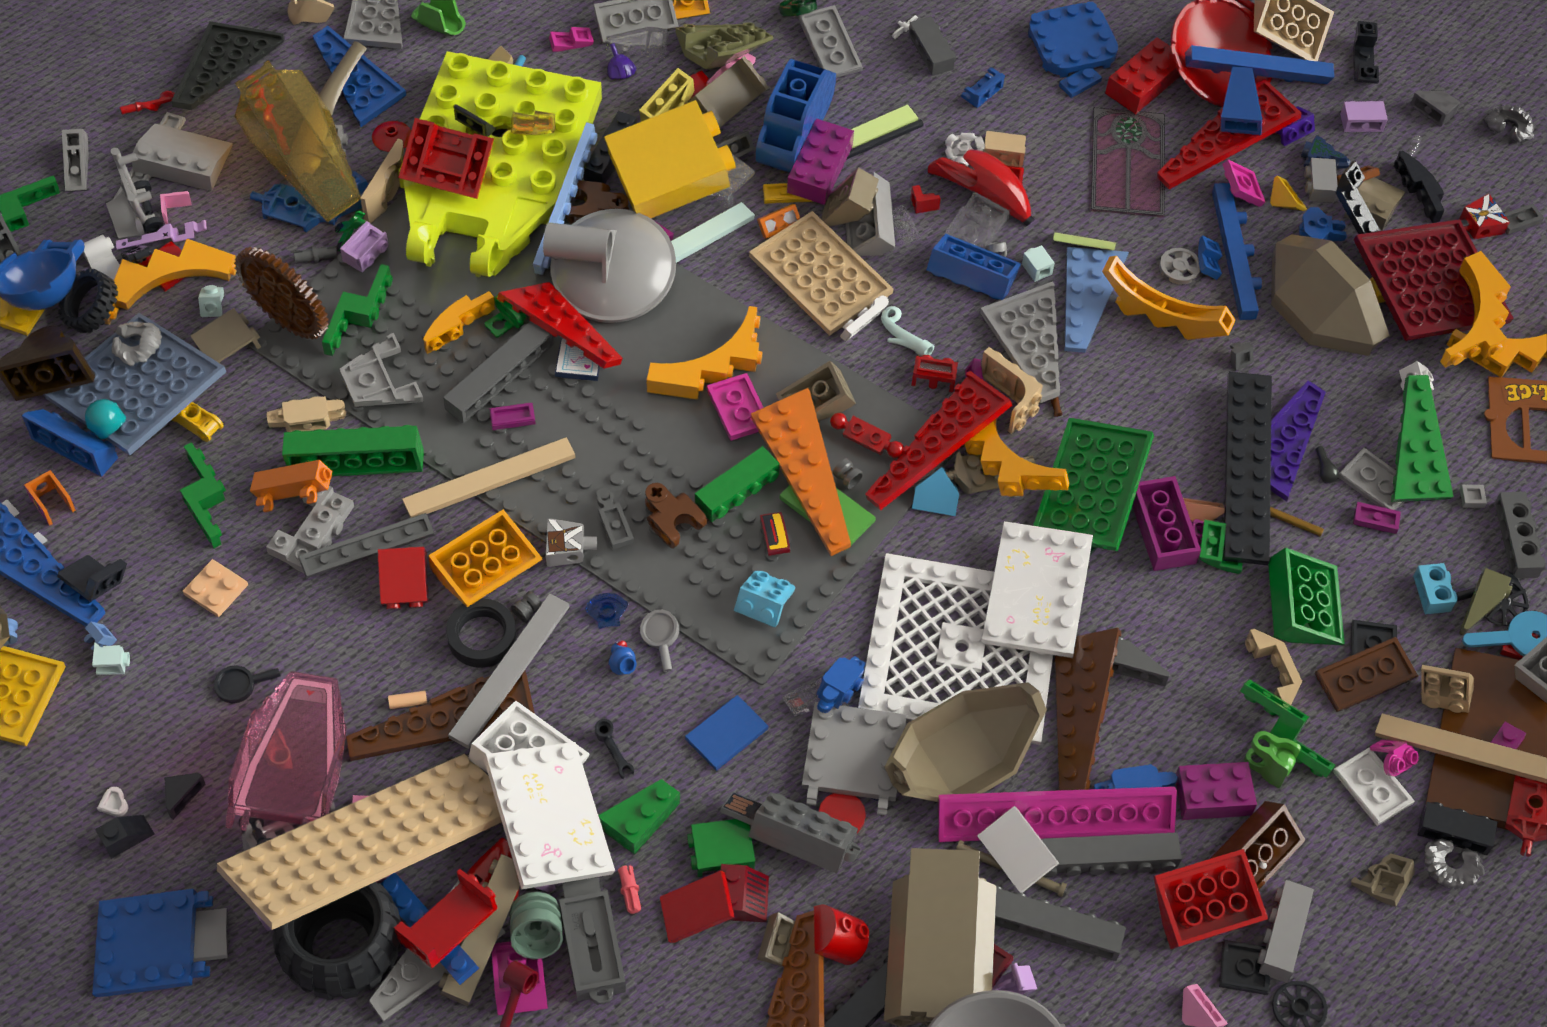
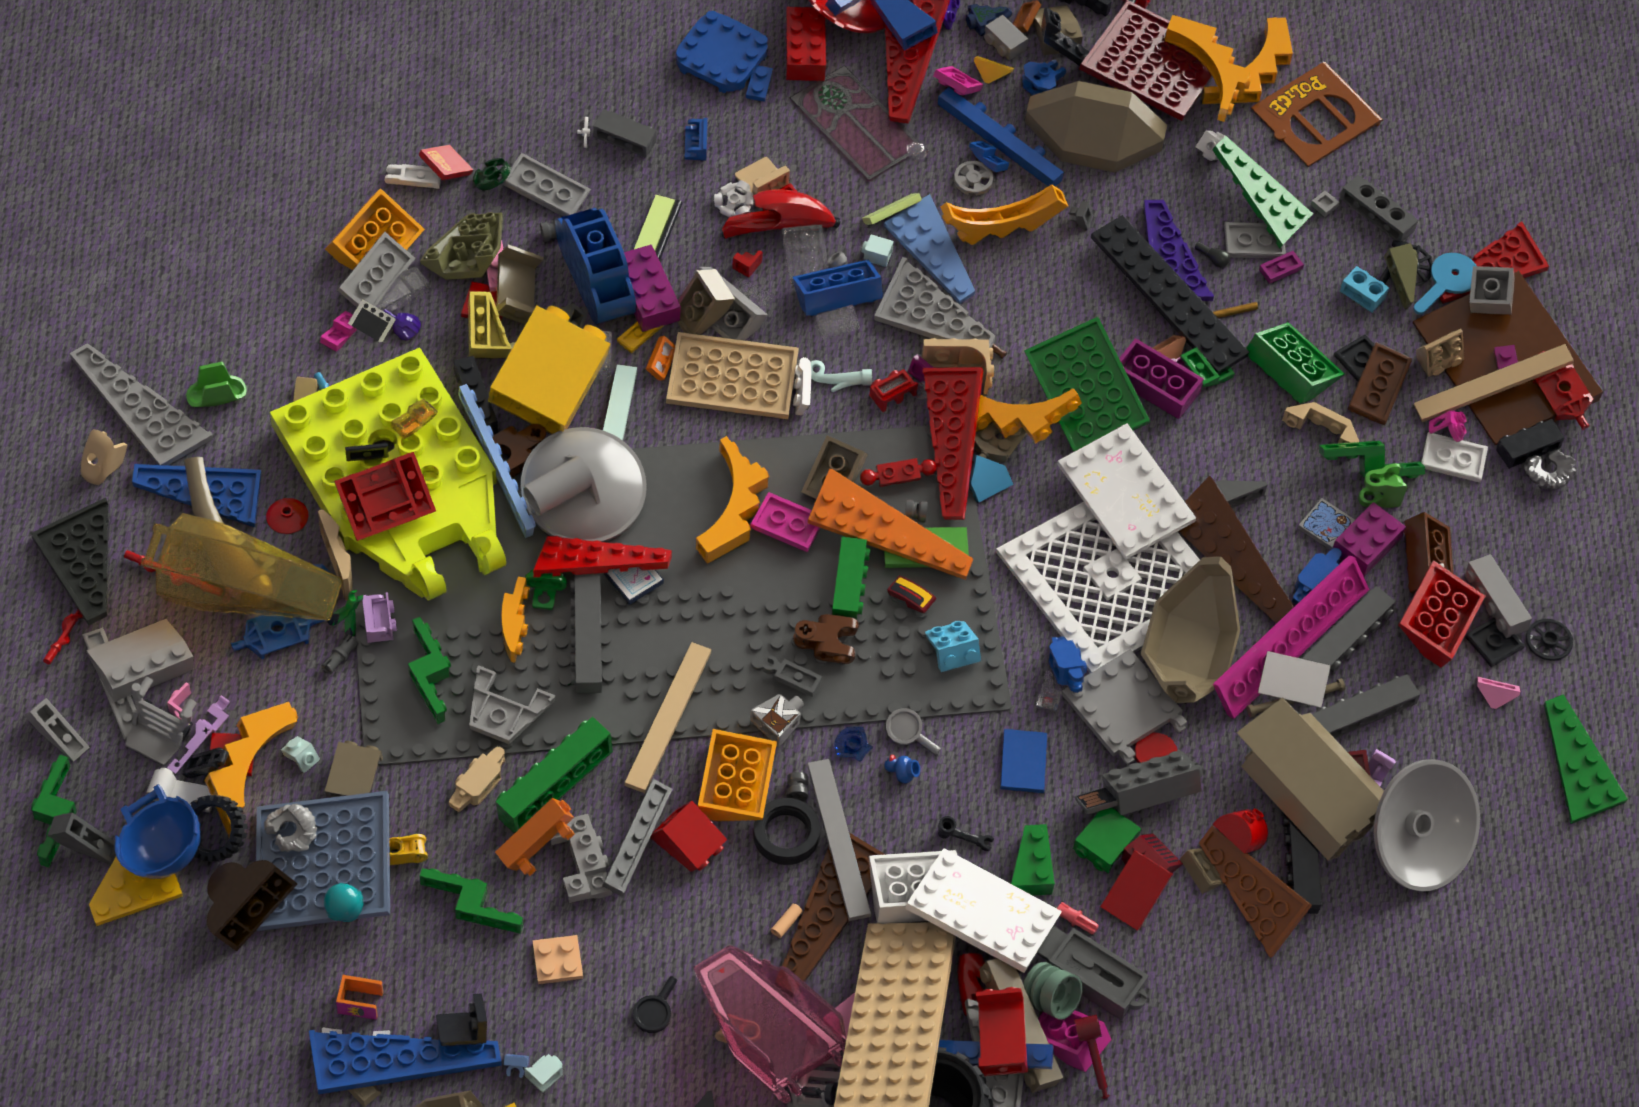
camera: 45 degrees left, 0 degrees up
(70, 441) = (325, 944): blue slope -> none
(281, 293) = (381, 697): reddish brown gear -> none
(512, 416) = (632, 658): magenta tile -> none
(596, 45) = (371, 321): none -> black sticker
(946, 292) = (837, 322): none -> clear slope
(1152, 214) = (918, 151): none -> clear tile
(1193, 747) = (1325, 523): none -> tile
(1392, 874) = (1520, 507): dark tan slope -> none

